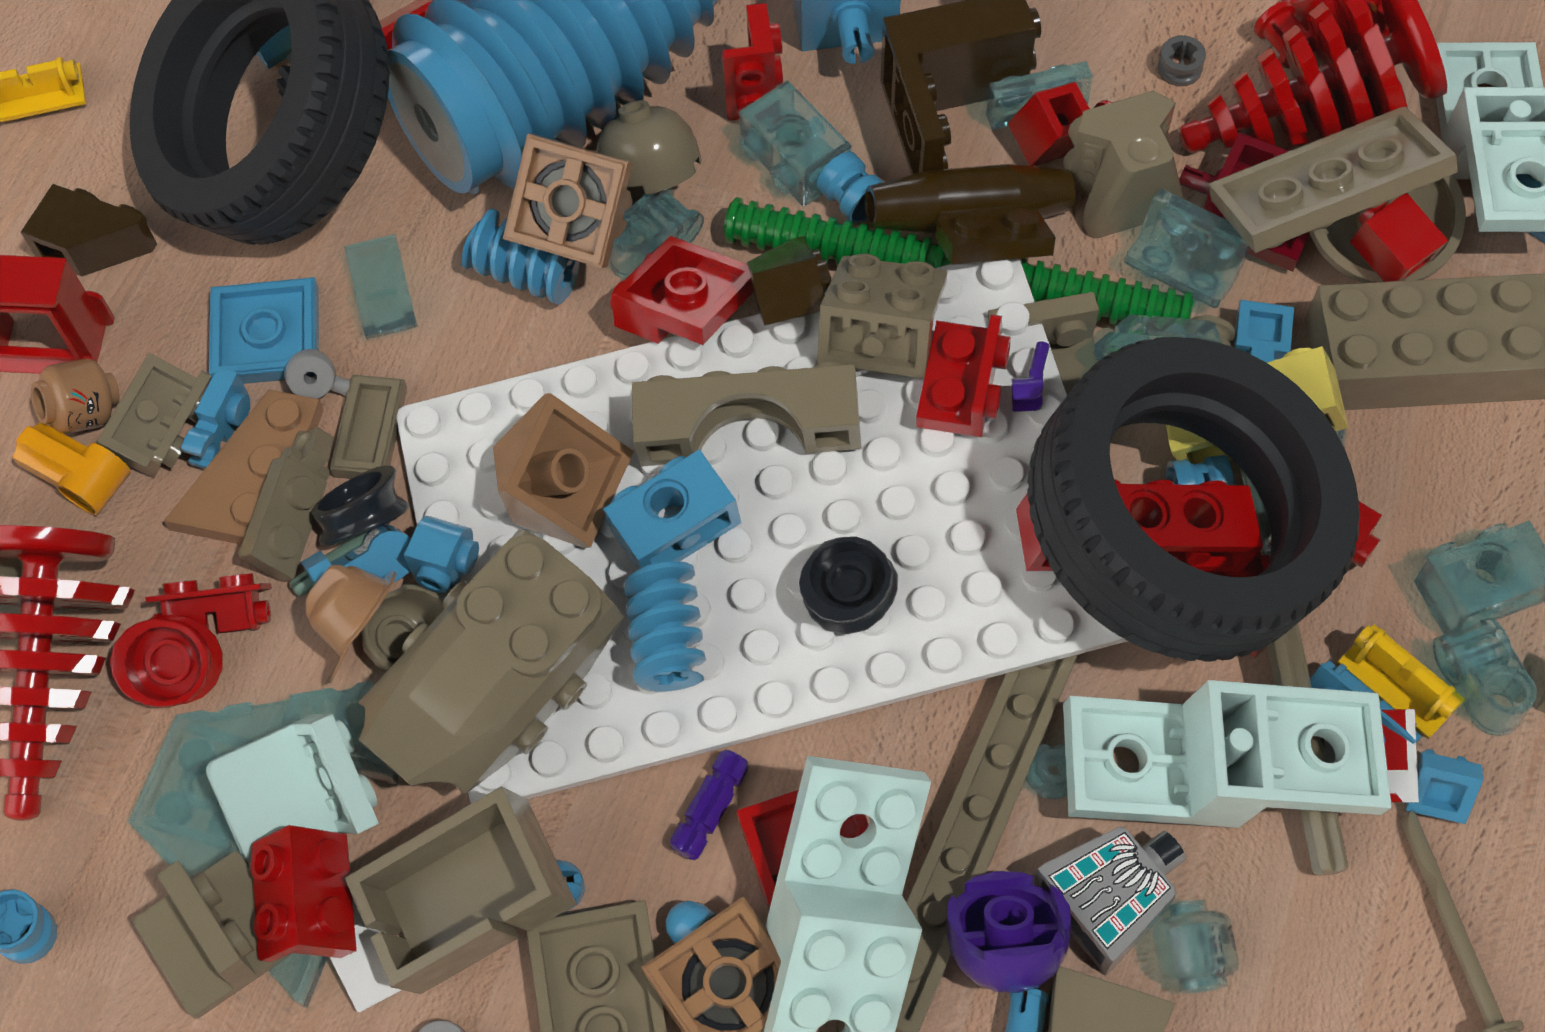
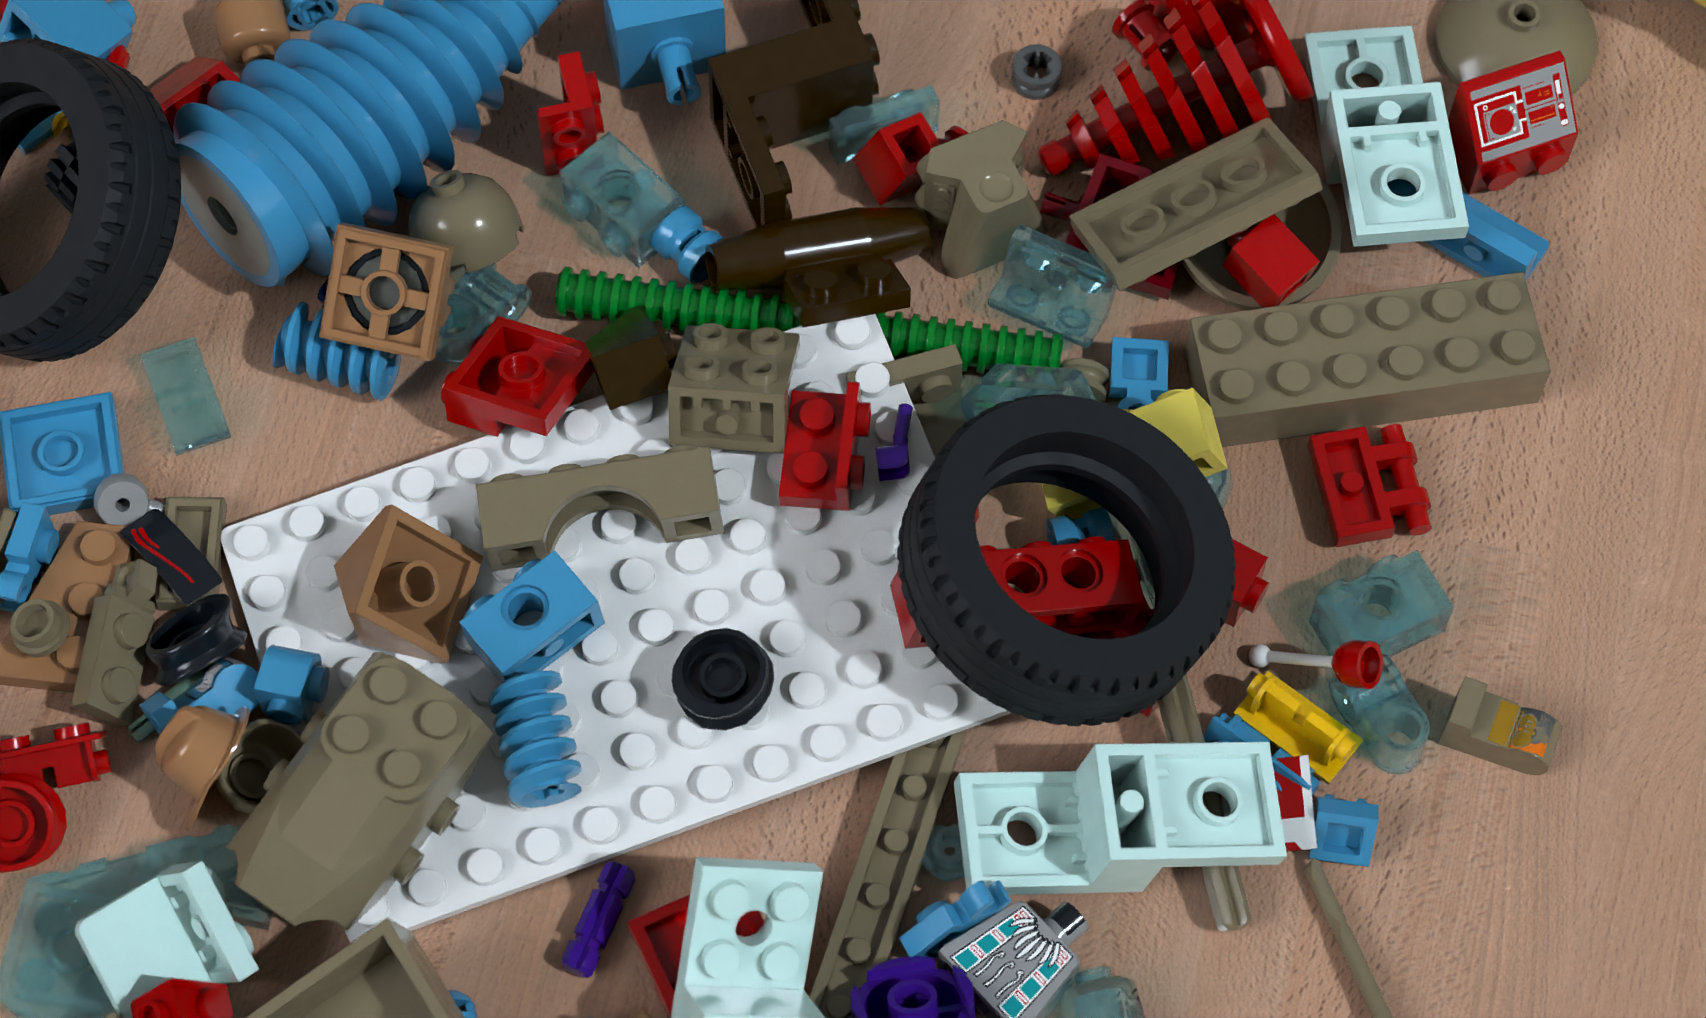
camera: 10 degrees left, 0 degrees up
(218, 481) = (39, 627): none -> dark tan plate
(350, 427) = (173, 555): none -> black sticker
(1045, 841) = (945, 921): none -> dark azure plate
(1464, 457) = (1353, 488): none -> red plate
(1464, 623) = (1355, 662): none -> red hinge

